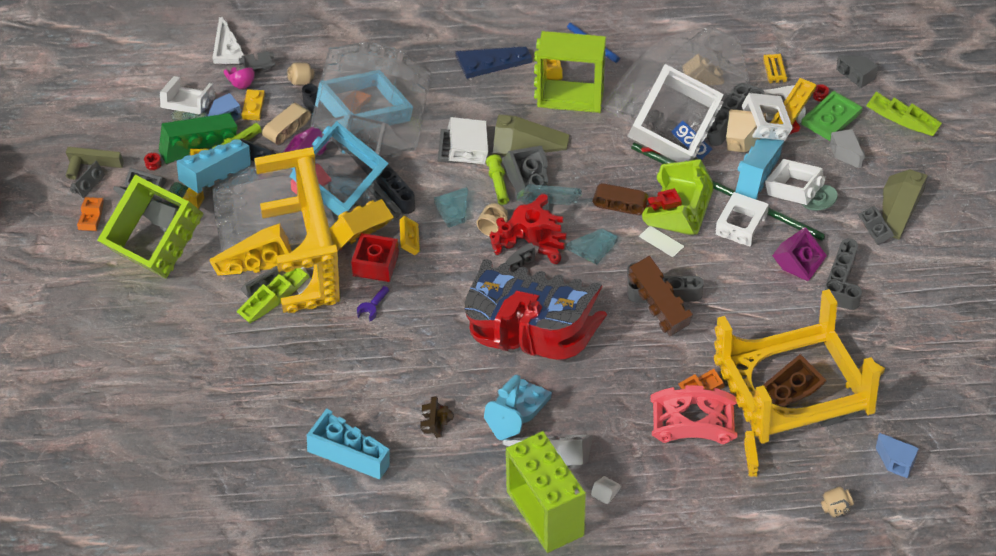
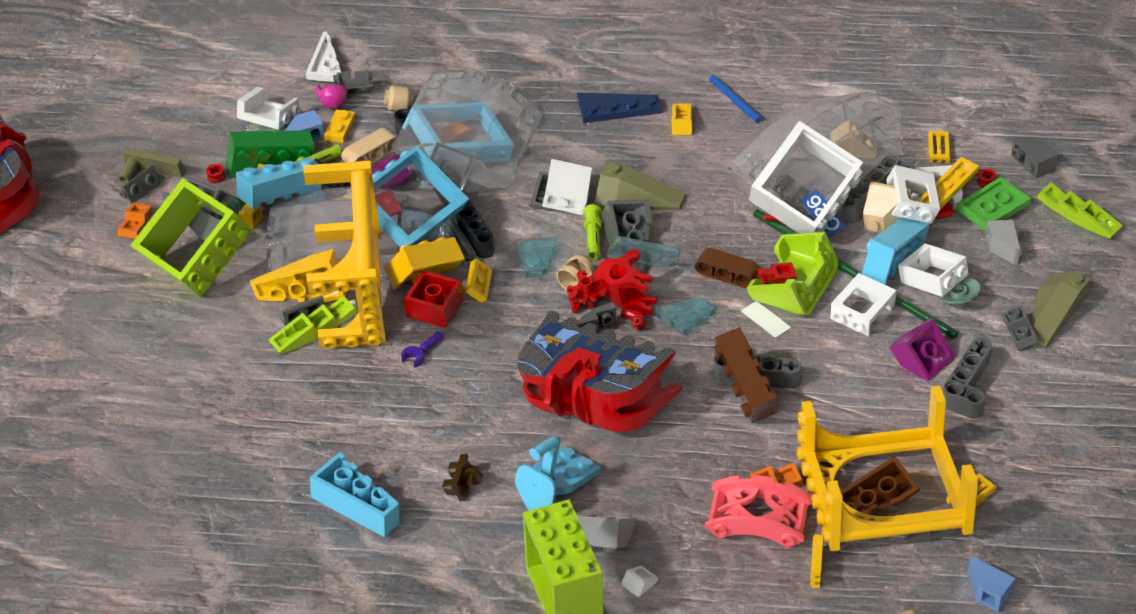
camera: 10 degrees right, 5 degrees down
(568, 94) = (693, 150): lime window -> none

